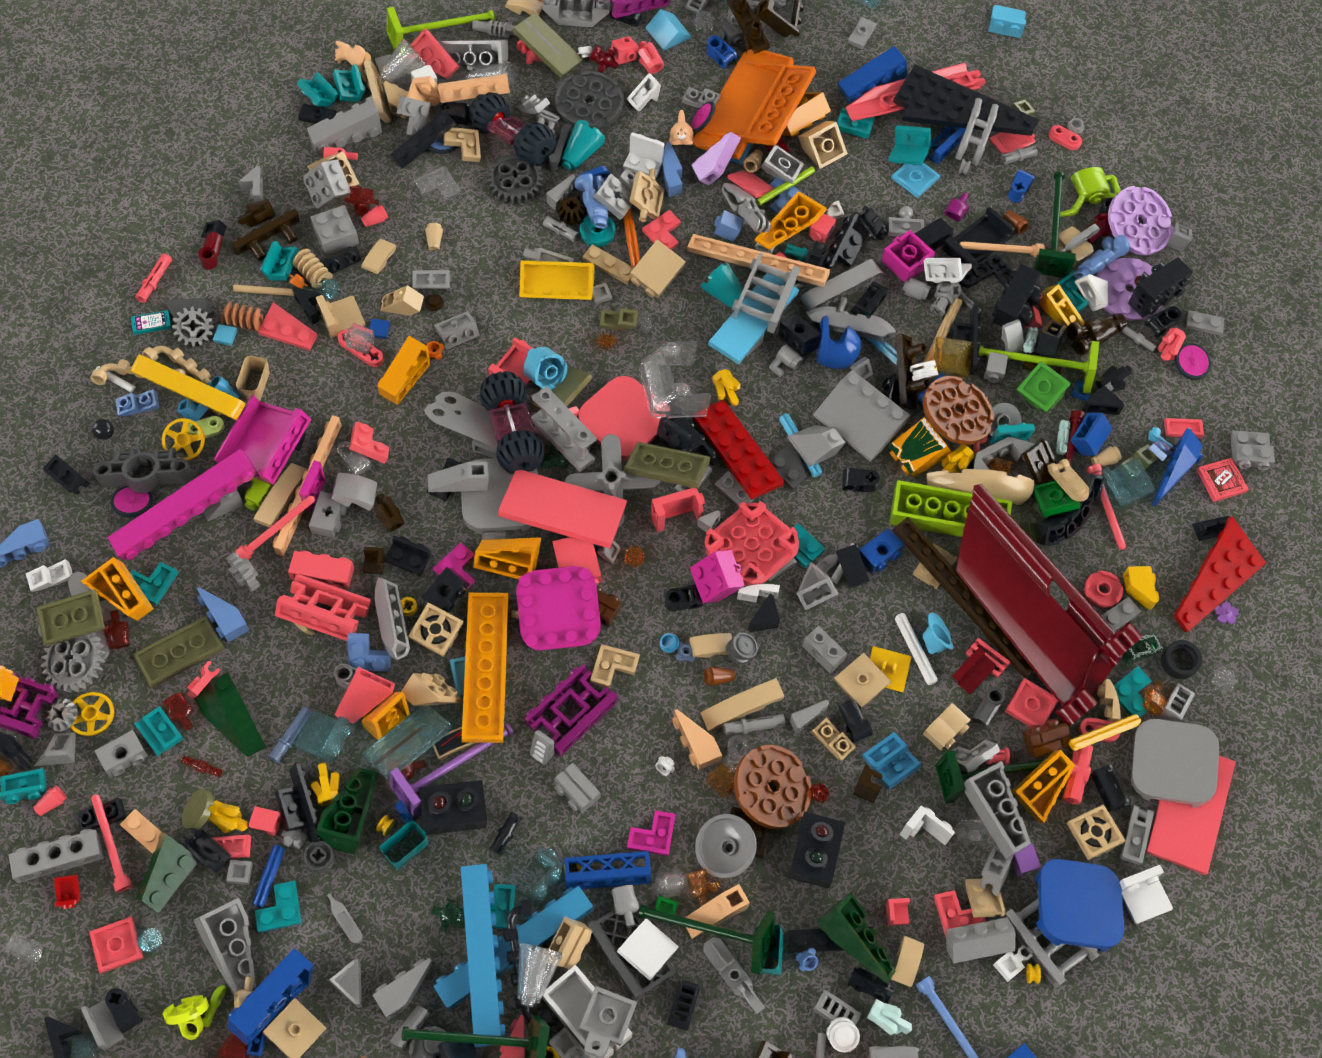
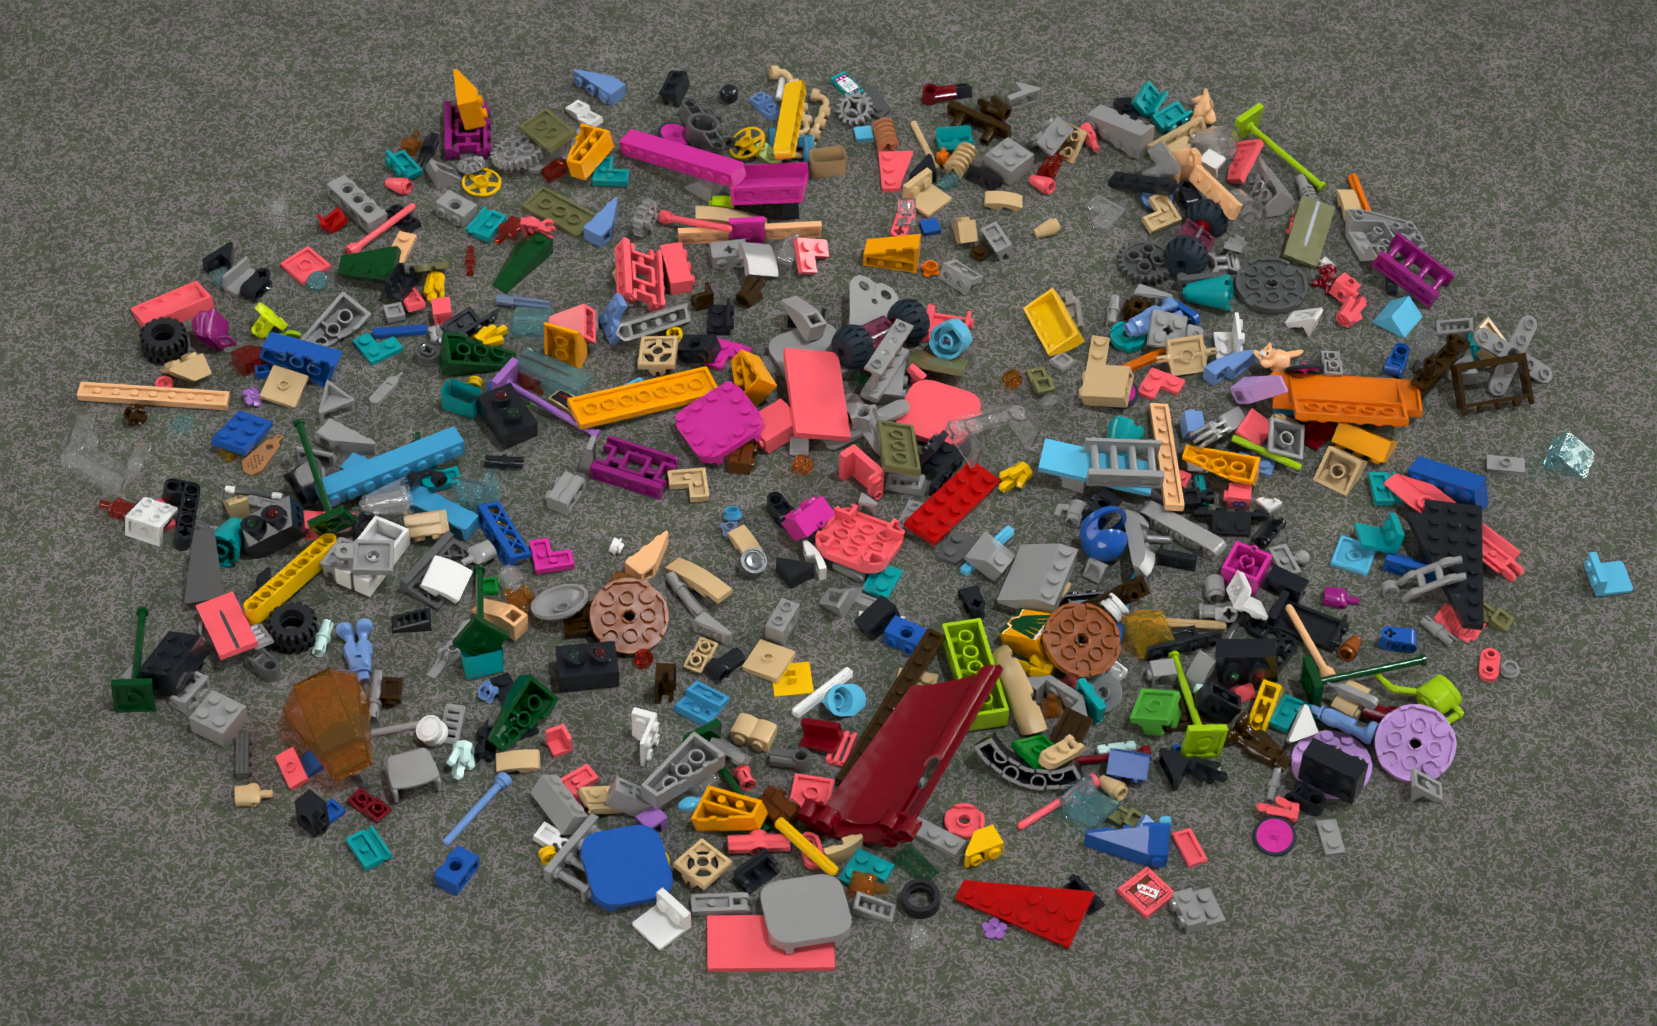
camera: 70 degrees right, 15 degrees down
(150, 283) = (887, 70): coral pin -> none
(429, 690) = (602, 367): tan slope -> none
(716, 676) = (718, 556): dark orange cone -> none

